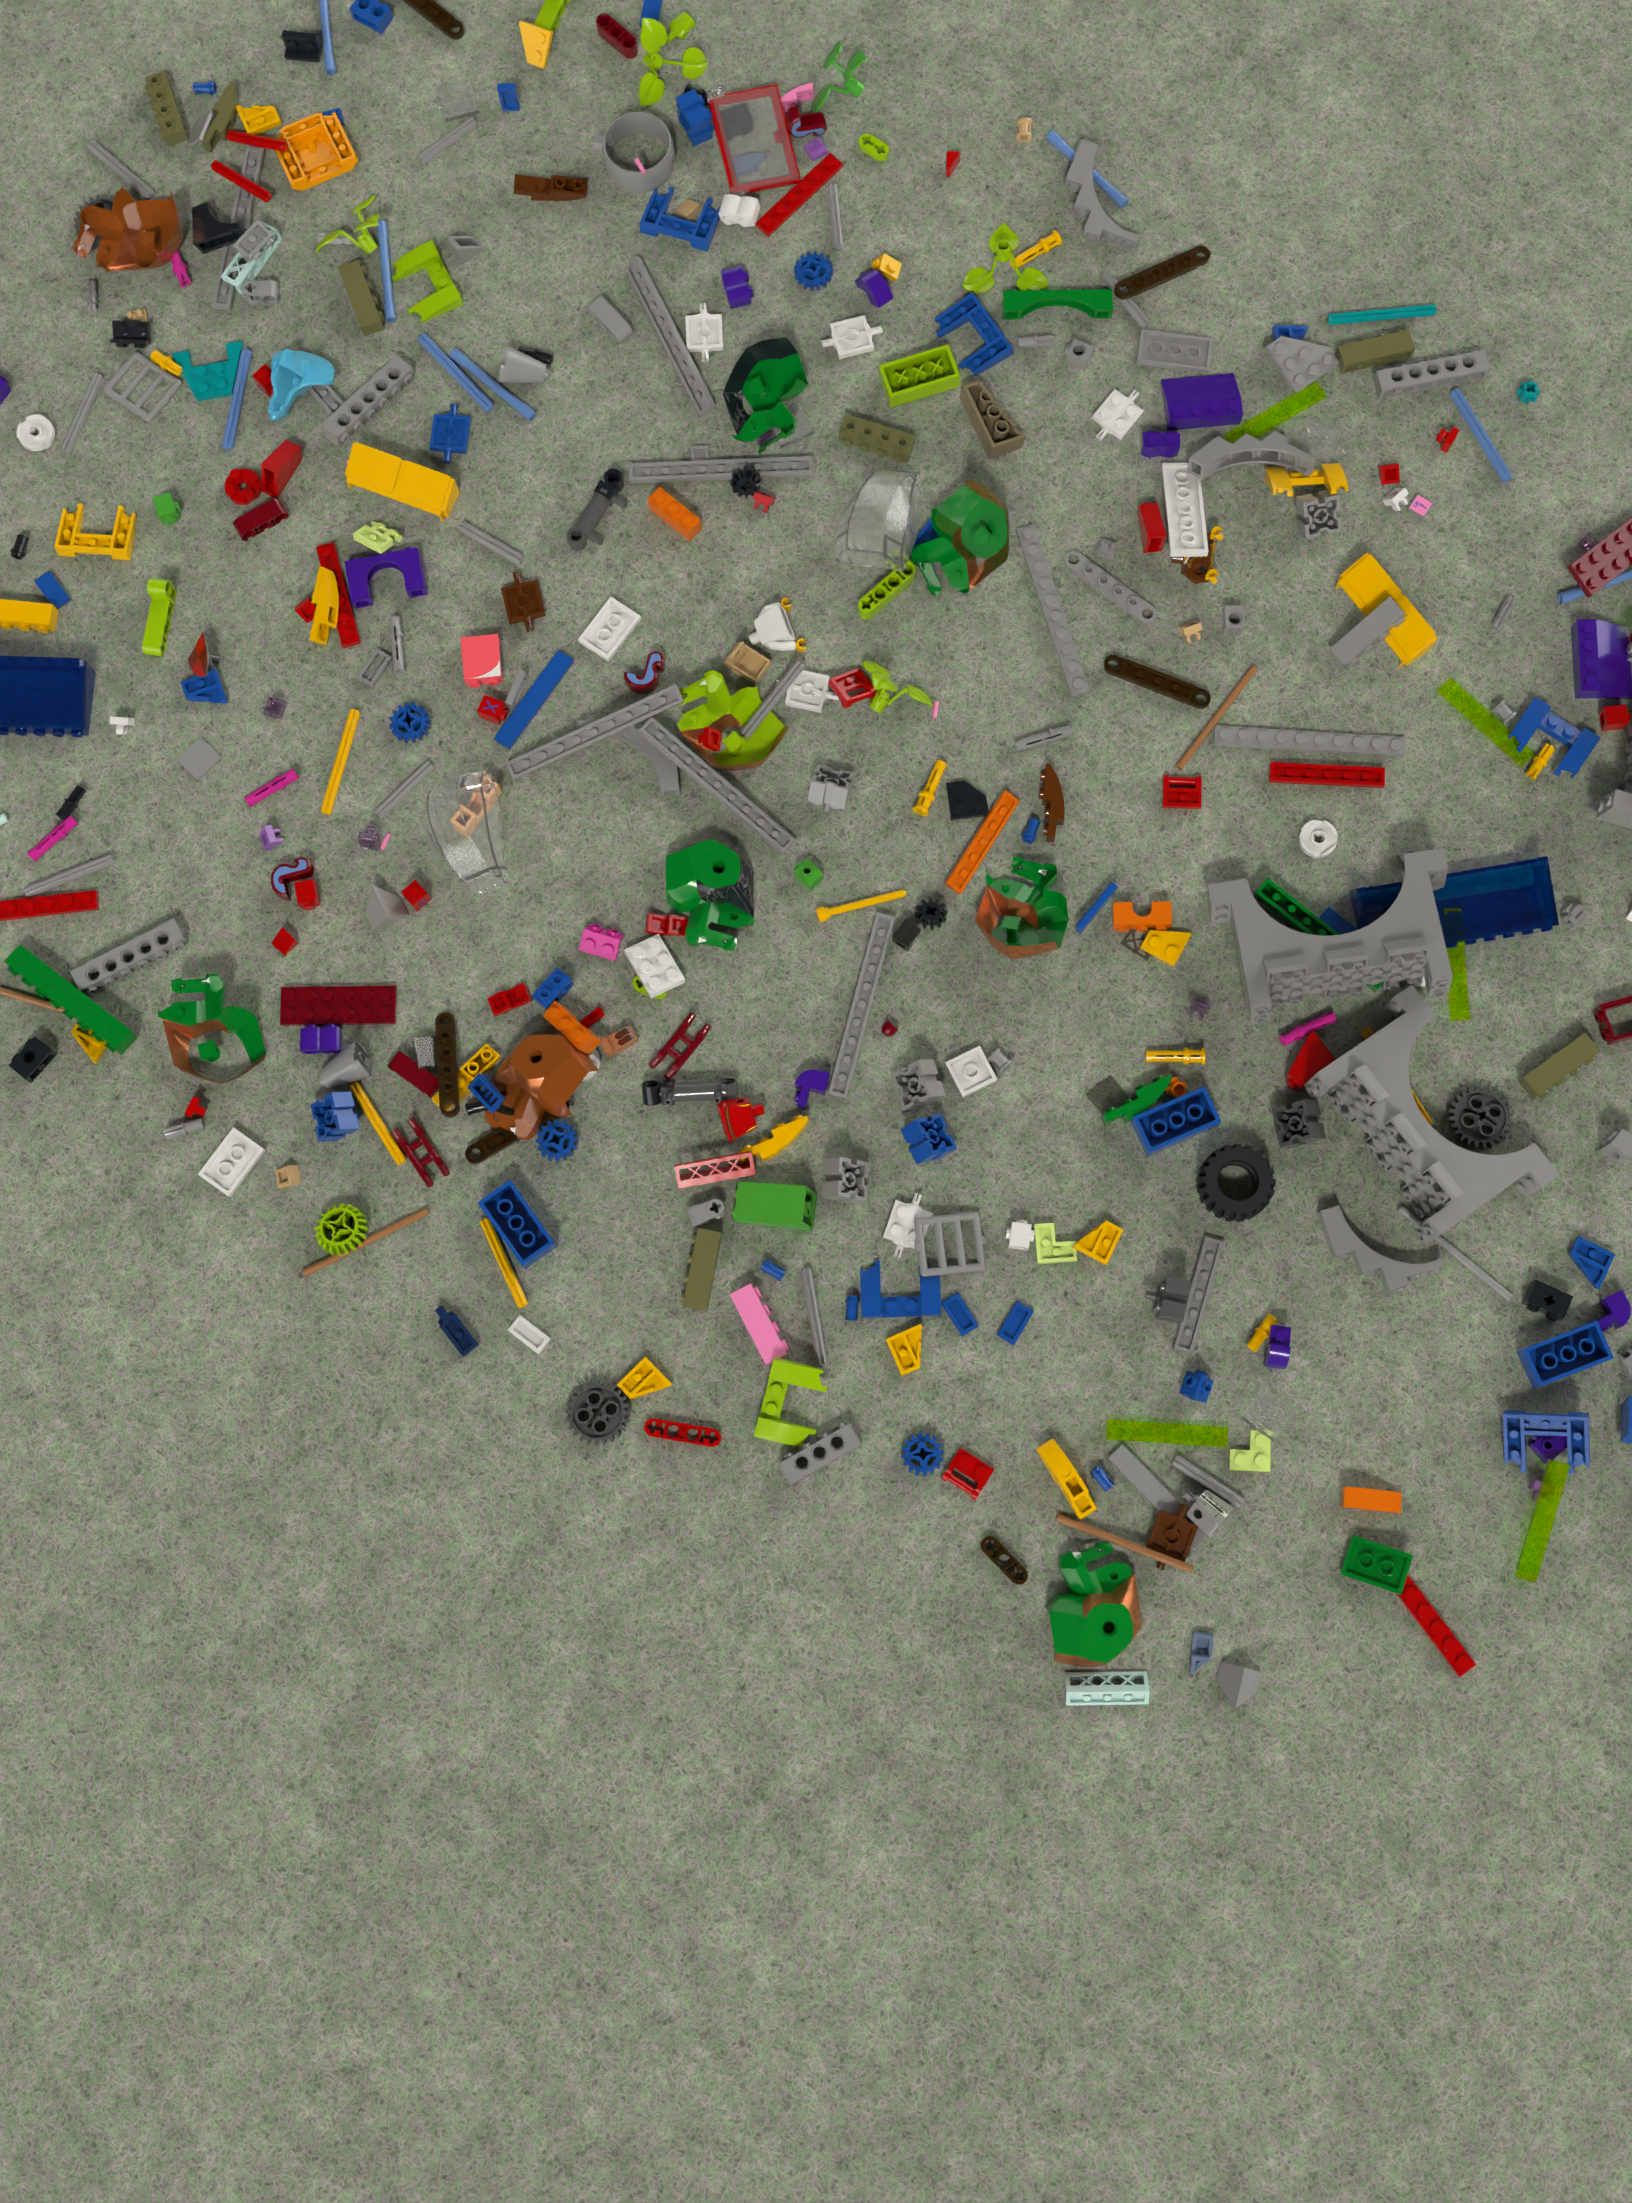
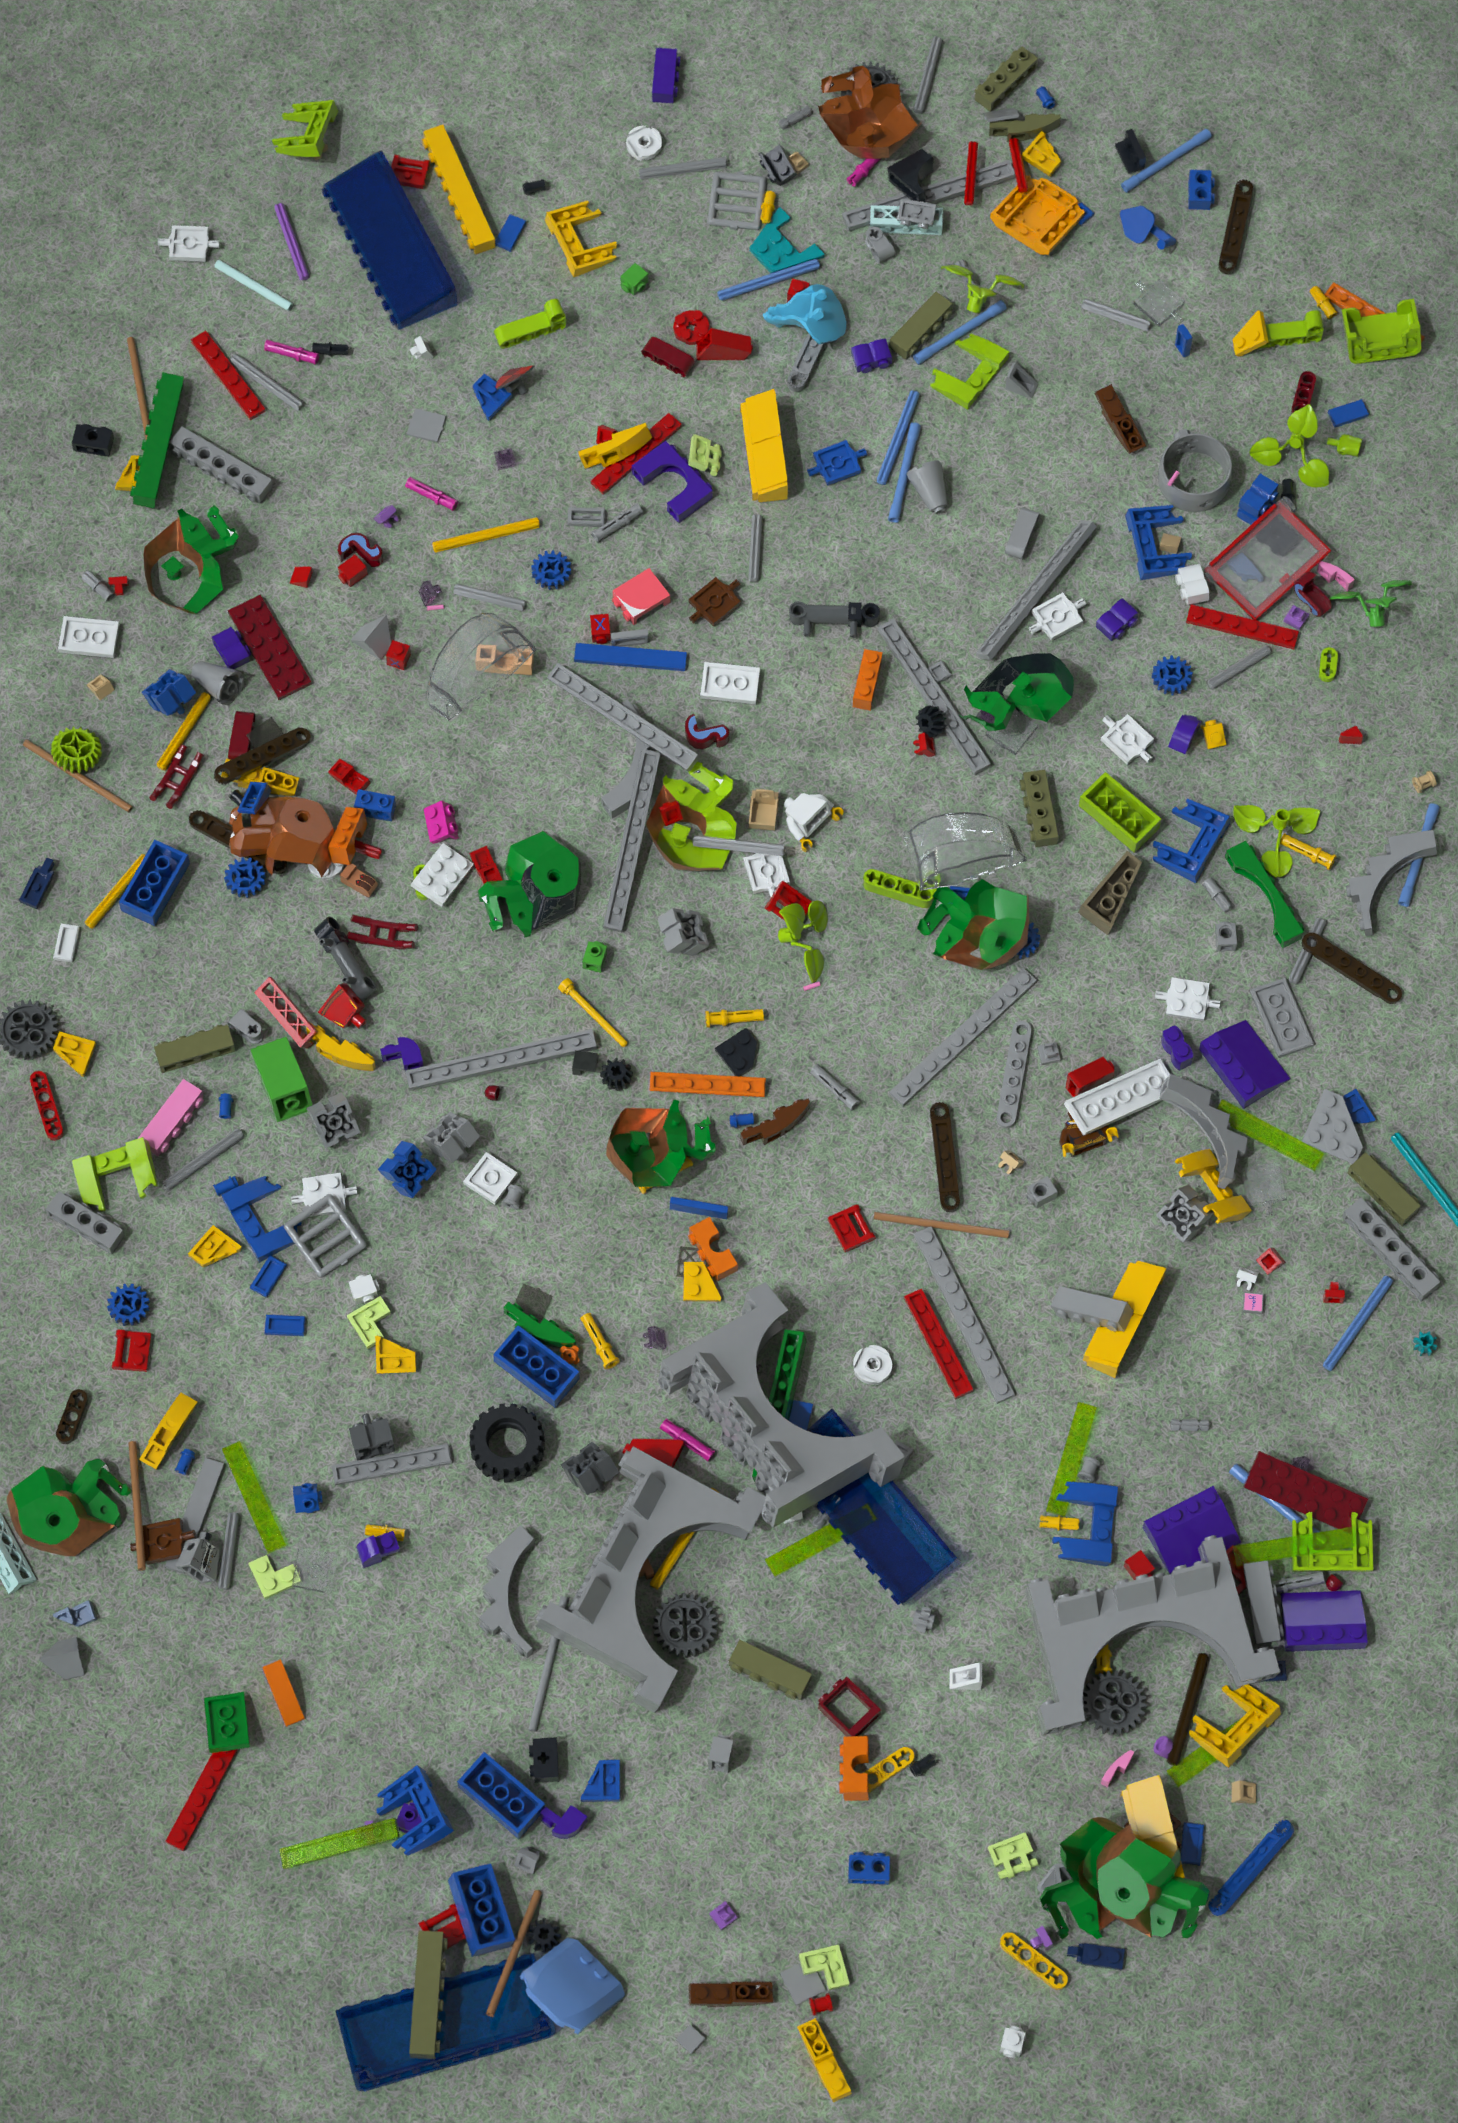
camera: 55 degrees right, 10 degrees down
(365, 352) = (871, 356): none -> dark purple brick
(369, 392) = (834, 378): light grey brick -> none
(374, 75) = (1140, 221): none -> blue piece
(538, 355) = (951, 491): black axle -> none

